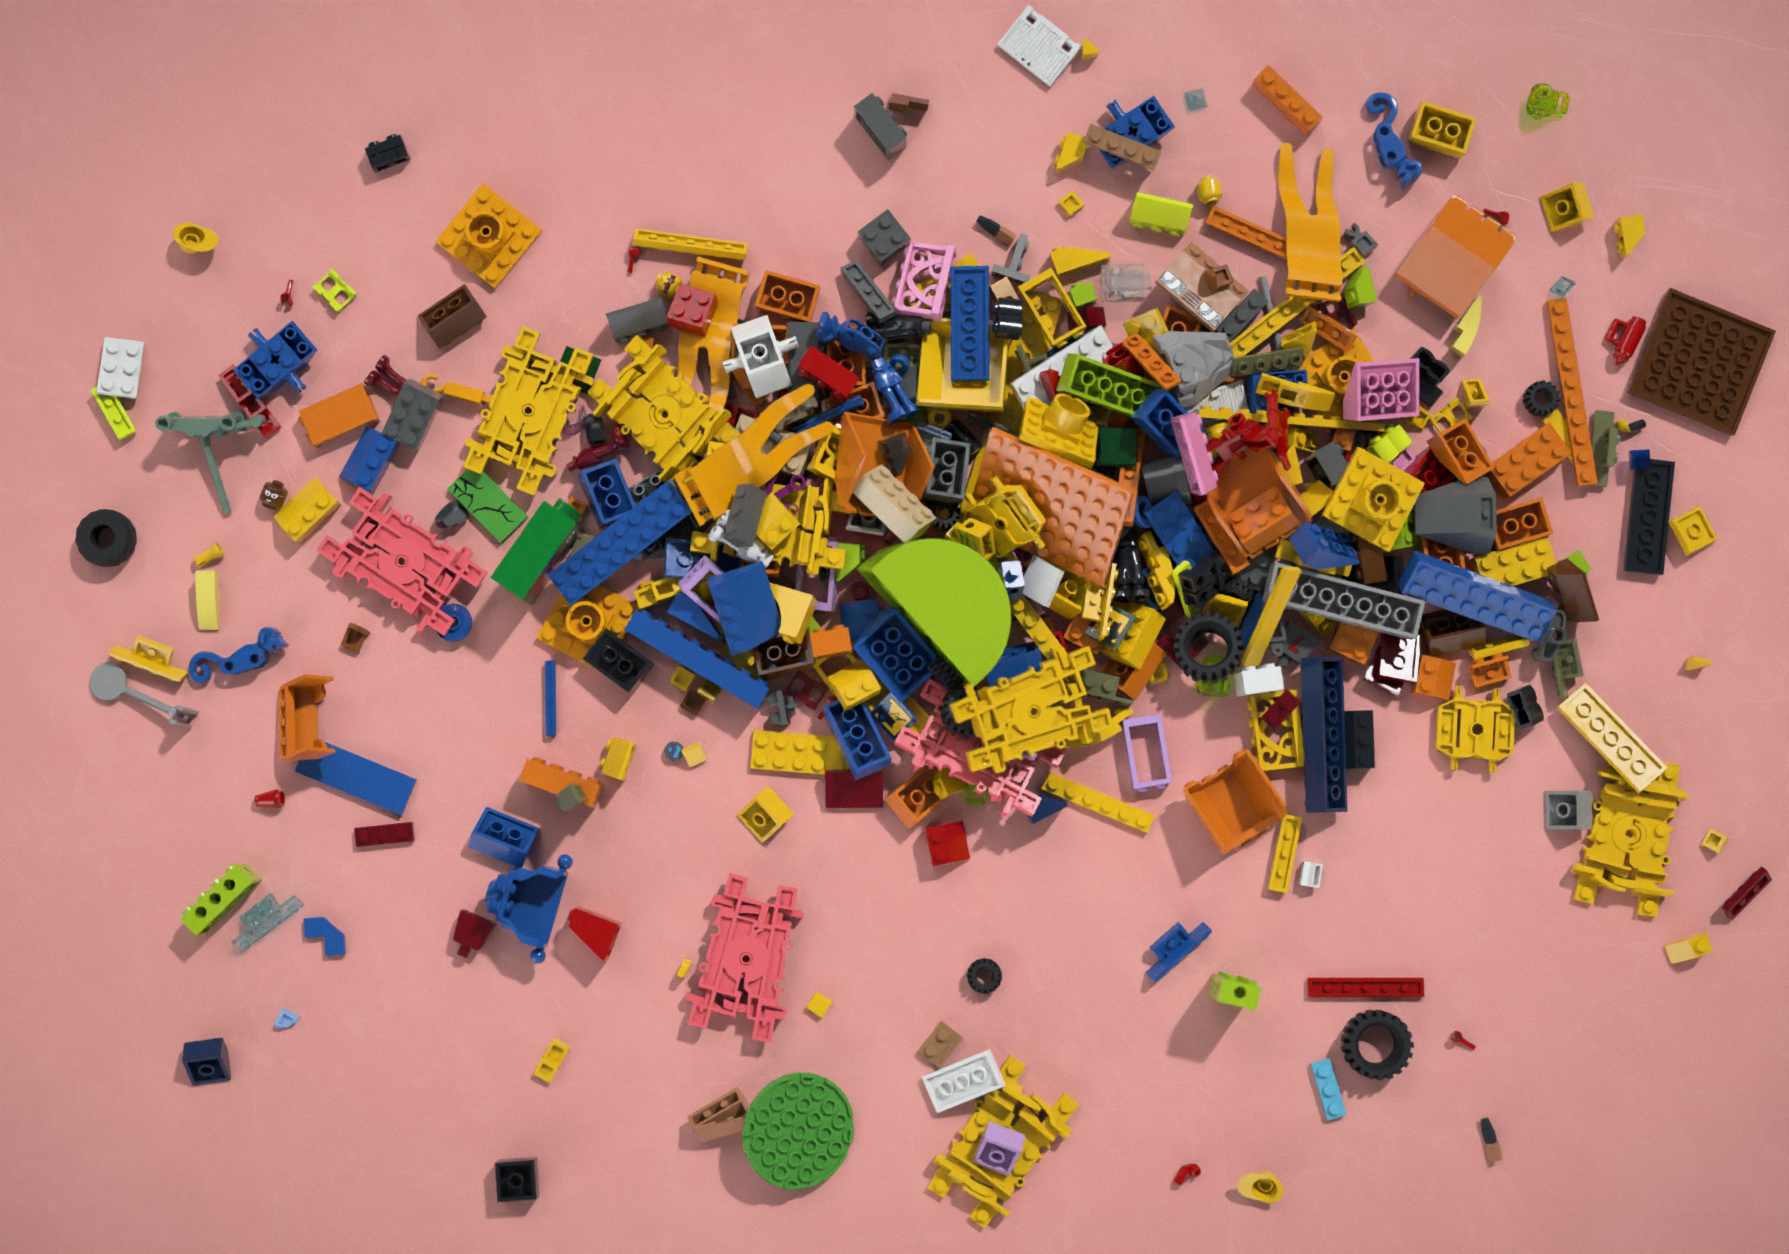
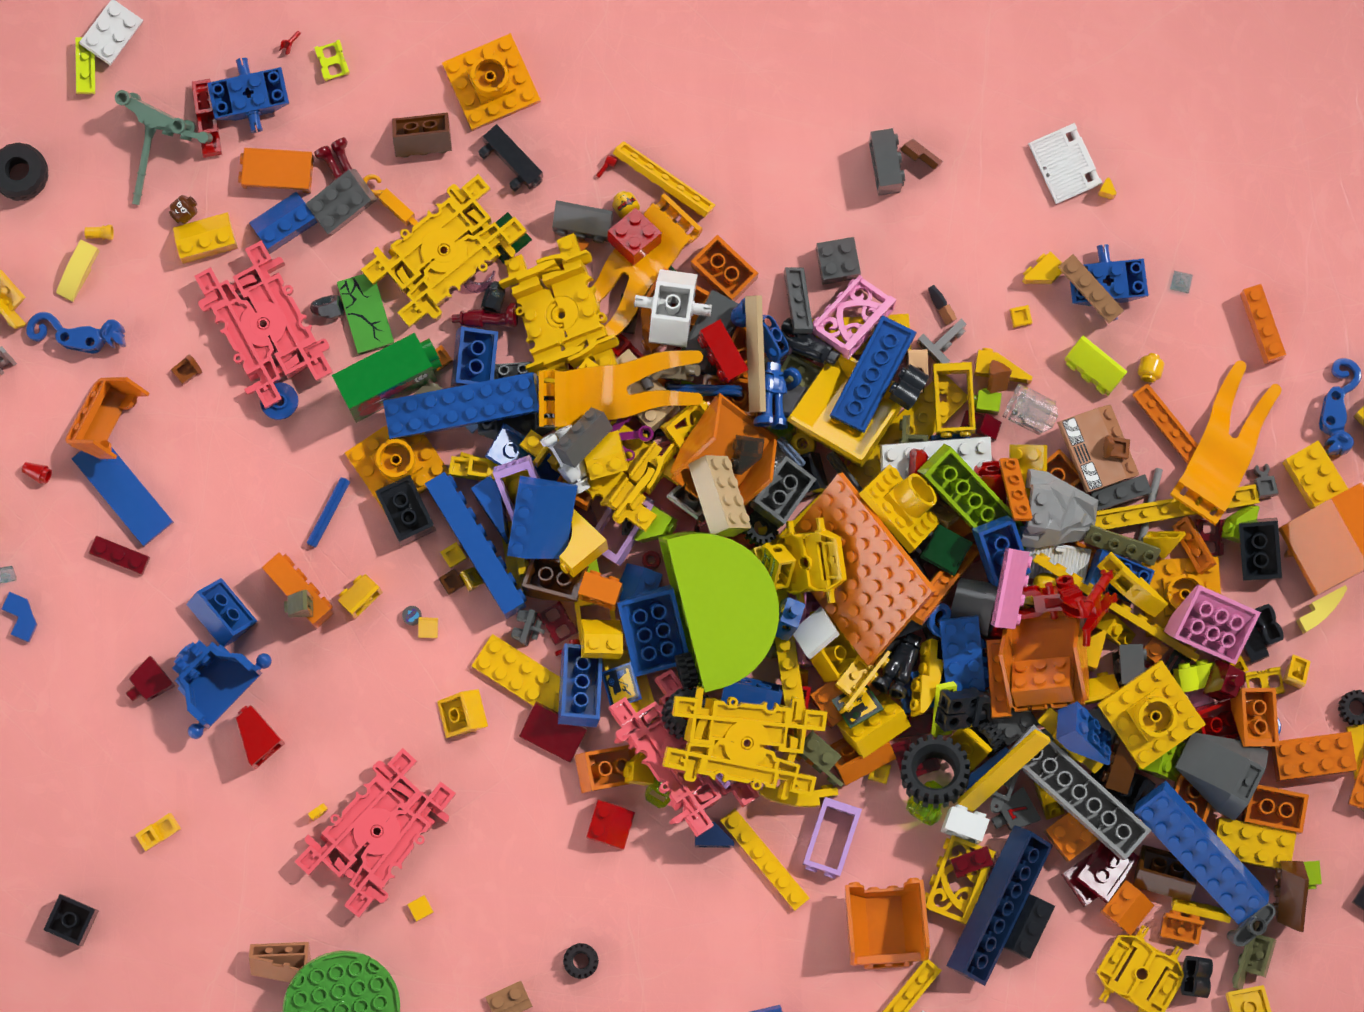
camera: 35 degrees right, 5 degrees down
(545, 294) = (513, 157): none -> black brick
(857, 359) = (755, 353): none -> tan tile
(1081, 268) = (998, 377): none -> dark orange tile
(1389, 302) = (1260, 549): none -> black slope
(1402, 212) = (1314, 475): none -> yellow brick
(1418, 435) = (1224, 681): none -> dark red torso

